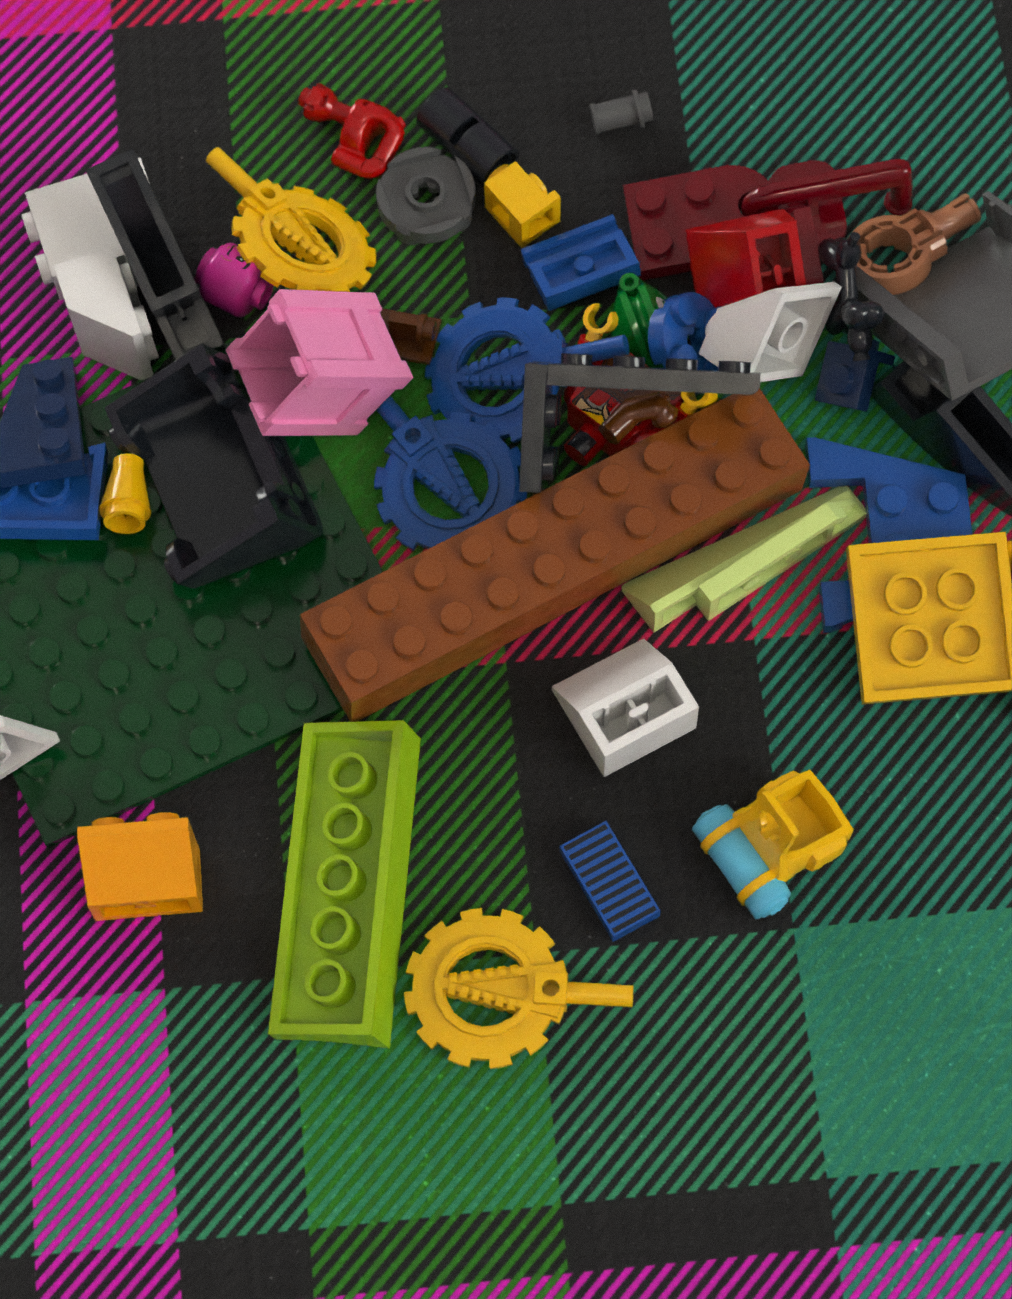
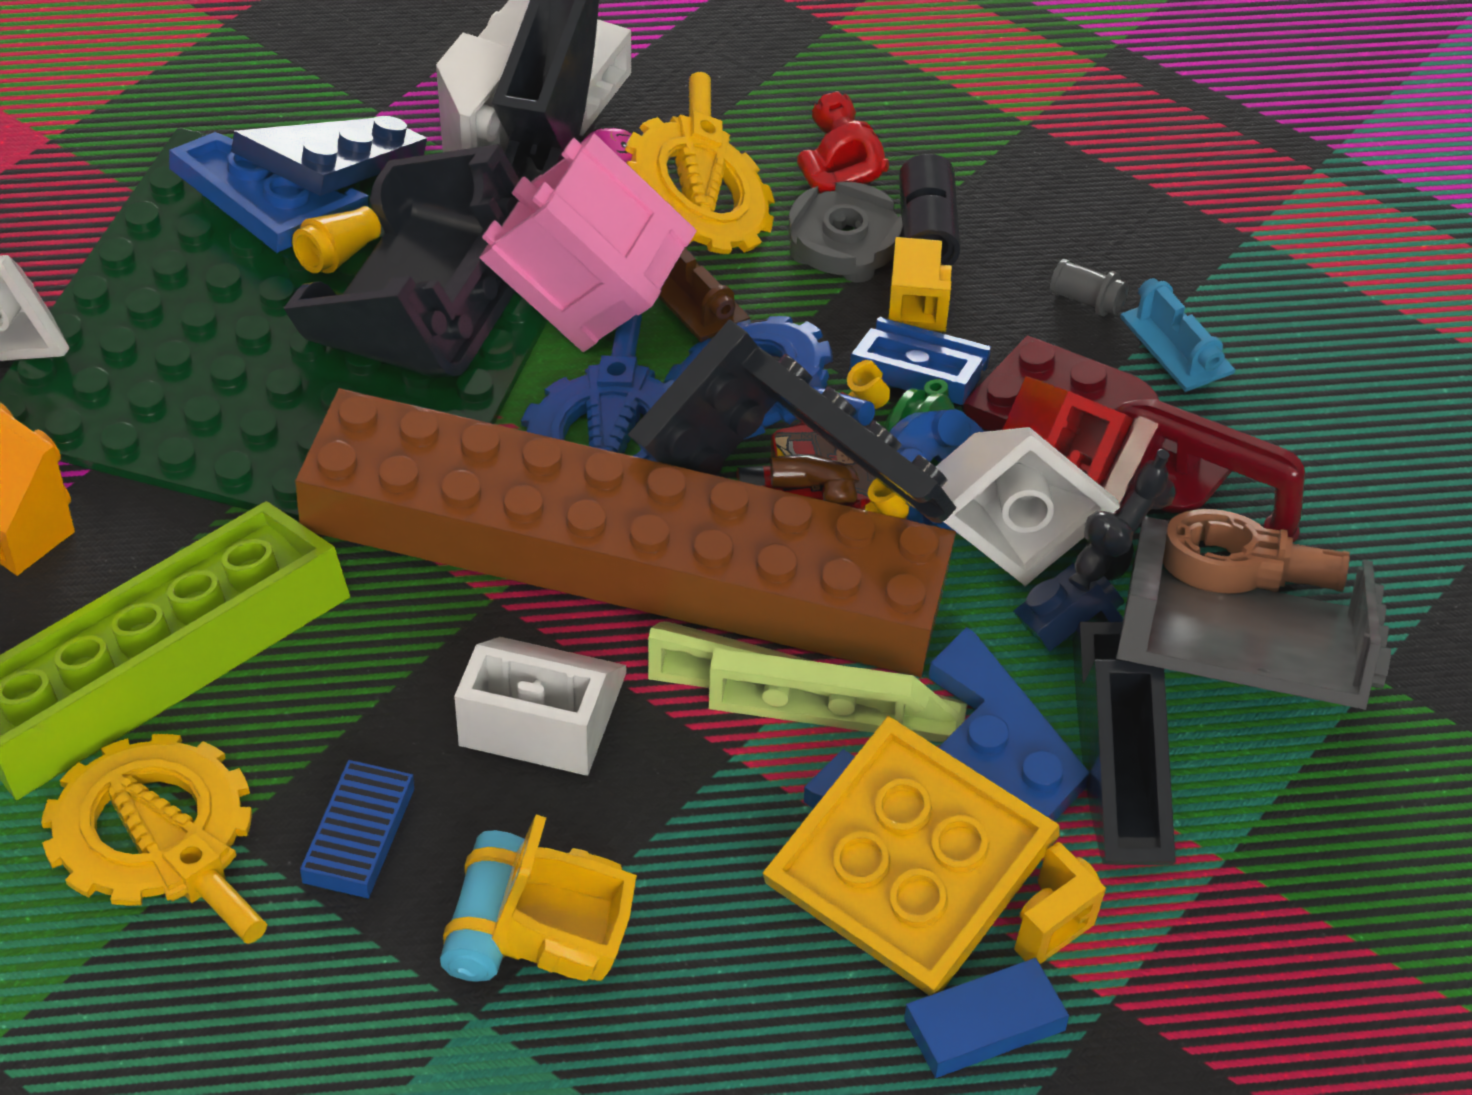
camera: 40 degrees right, 20 degrees down
(711, 110) = (1175, 338): none -> dark azure hinge

